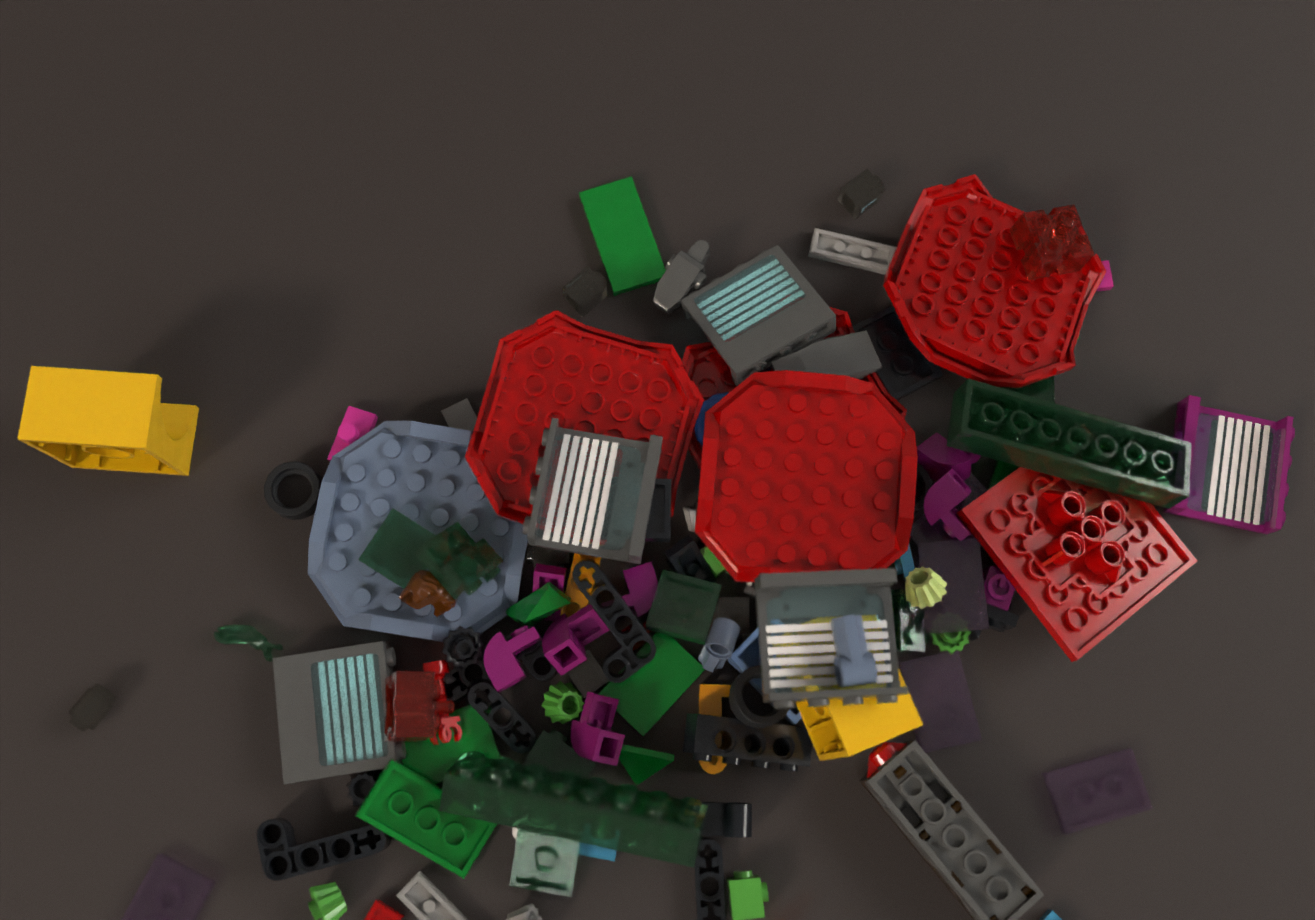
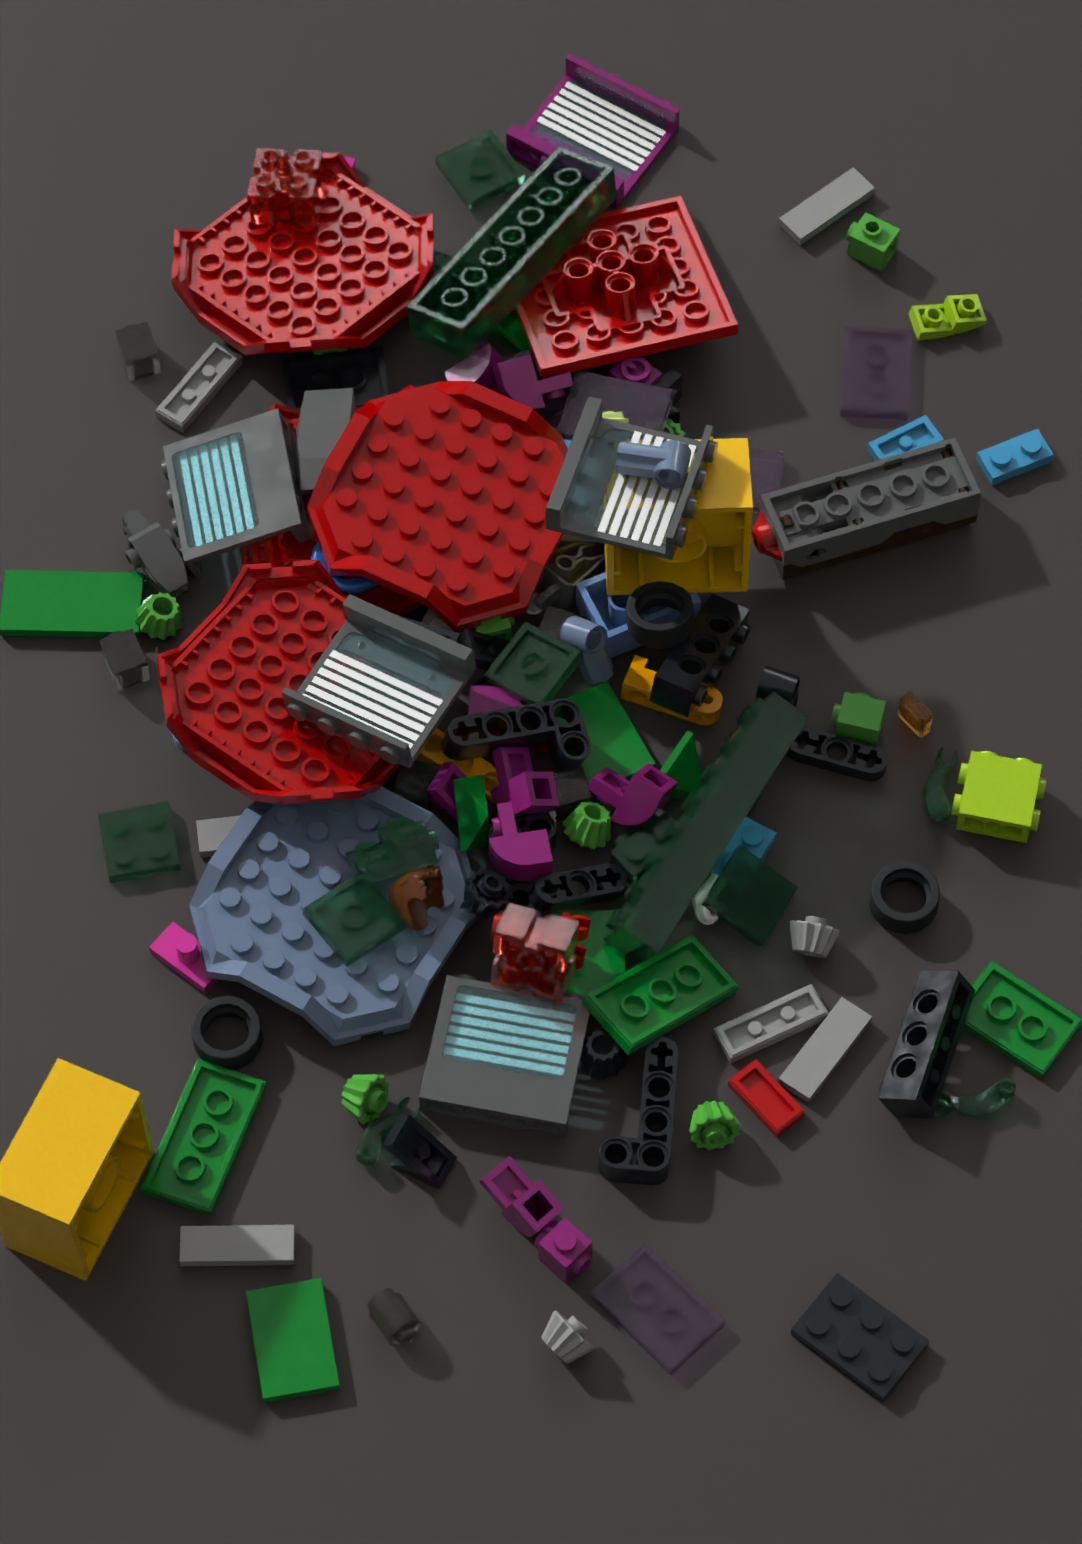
camera: 65 degrees left, 15 degrees down
(58, 637) = (292, 1340): none -> green tile
(109, 850) = (566, 1337): none -> light grey piece
(125, 566) = (237, 1245): none -> light grey tile
(182, 821) = (564, 1249): none -> magenta brick
(206, 507) = (204, 1137): none -> green tile
(214, 774) = (523, 1203): none -> magenta brick
(234, 674) = (418, 1152): none -> black slope
(268, 615) = (365, 1096): none -> bright green piece
(438, 364) = (139, 842): none -> clear green plate
(632, 302) = (159, 616): none -> bright green piece
(1033, 843) = (906, 438): none -> dark azure plate
(1149, 388) = (480, 169): none -> clear green plate
(1180, 836) = (952, 317): none -> lime slope
(1227, 742) = (872, 241): none -> bright green brick
(1247, 689) = (826, 206): none -> light grey tile

